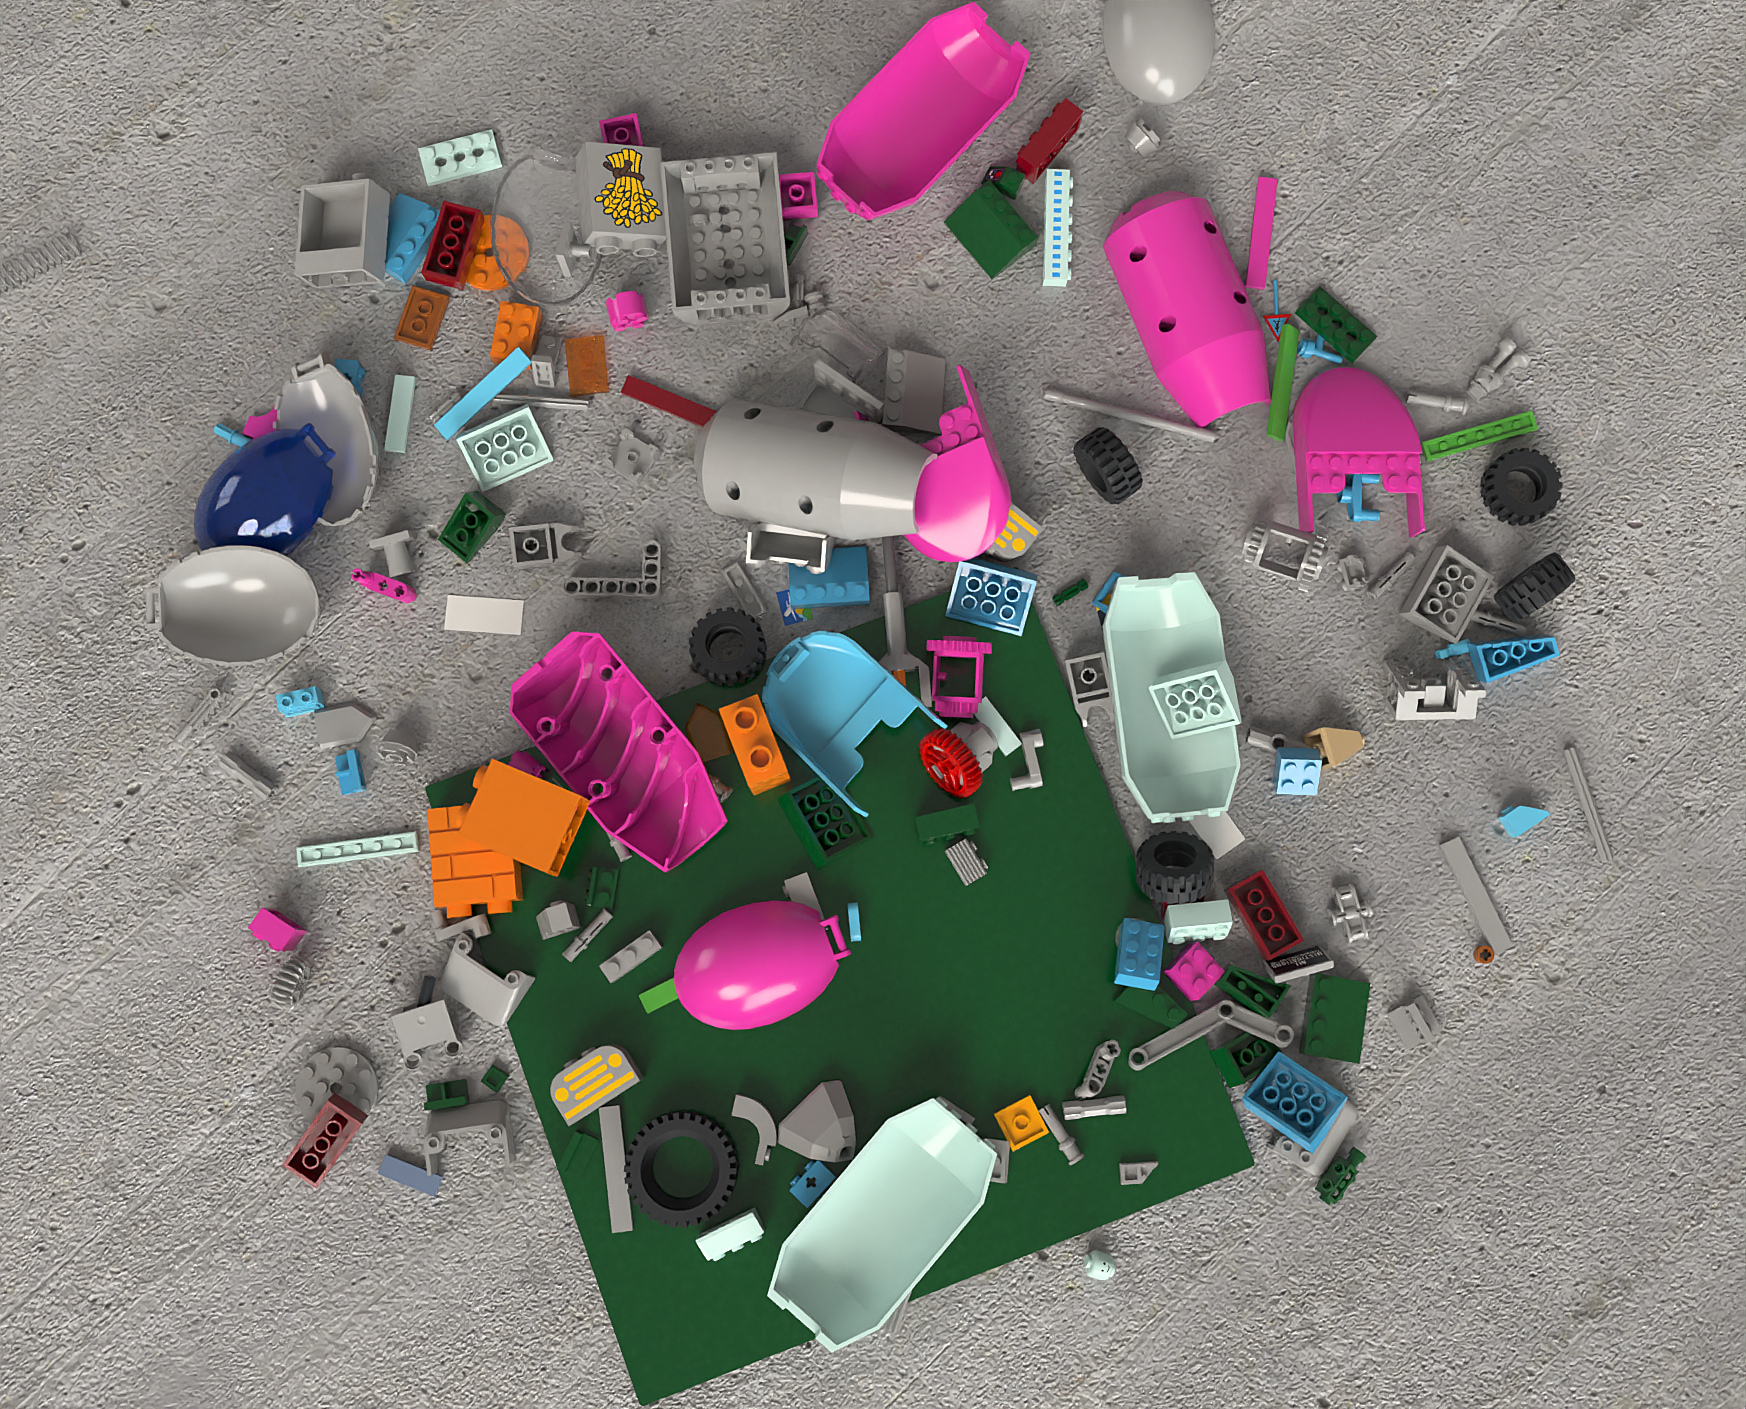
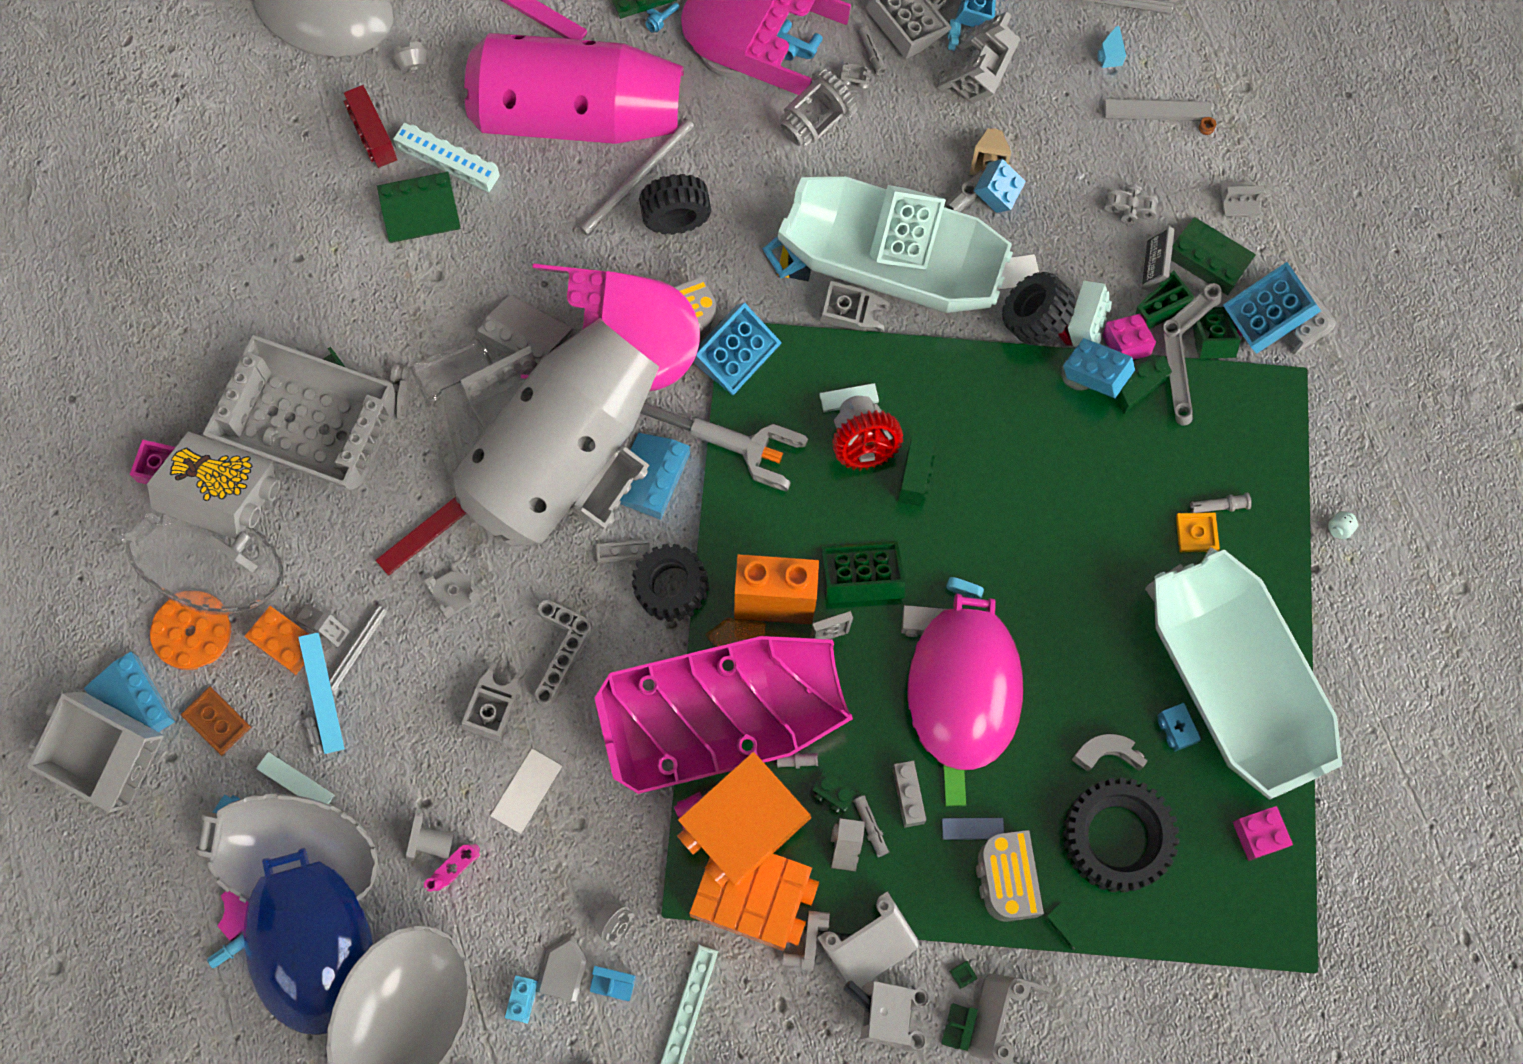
camera: 65 degrees left, 10 degrees down
(453, 245) = (167, 654): dark red brick -> none
(469, 166) = (94, 626): light aqua plate -> none
(471, 525) = (438, 762): dark green slope -> none
(504, 447) = (381, 698): light aqua slope -> none
(587, 365) = (346, 593): clear orange tile -> none
(614, 1166) = (1096, 897): light grey tile -> none
(627, 310) = (317, 531): dark pink brick -> none
(628, 1029) = (971, 828): none -> sand blue tile
(731, 1235) = (1196, 818): light aqua slope -> none
(745, 1303) = (1262, 833): none -> dark pink brick
(753, 818) = (832, 627): none -> light grey tile
(789, 615) = (666, 523): blue sticker -> none
(798, 196) = (300, 337): dark pink brick -> none
(821, 1125) = (1133, 694): light grey brick -> none
(827, 698) = (764, 508): medium azure windscreen -> none
(920, 113) = (291, 207): dark pink cylinder -> none
(959, 648) = (771, 388): dark pink piece -> none
(966, 861) = (955, 473): light grey brick -> none
(1005, 180) = (381, 173): dark green slope -> none
(1030, 741) = (909, 387): light grey beam -> none
(1070, 592) = (762, 290): dark green axle -> none
(1094, 1081) = (1180, 448): light grey beam -> none
(1103, 1106) = (1209, 467): light grey axle -> none
(1135, 1171) = (1276, 461): light grey tile -> none
(1264, 915) = (1106, 264): dark red brick -> none
(1276, 321) = (620, 34): piece -> none
(1282, 382) = (672, 53): bright green tile -> none
(1335, 1177) = (1339, 308): dark green brick -> none

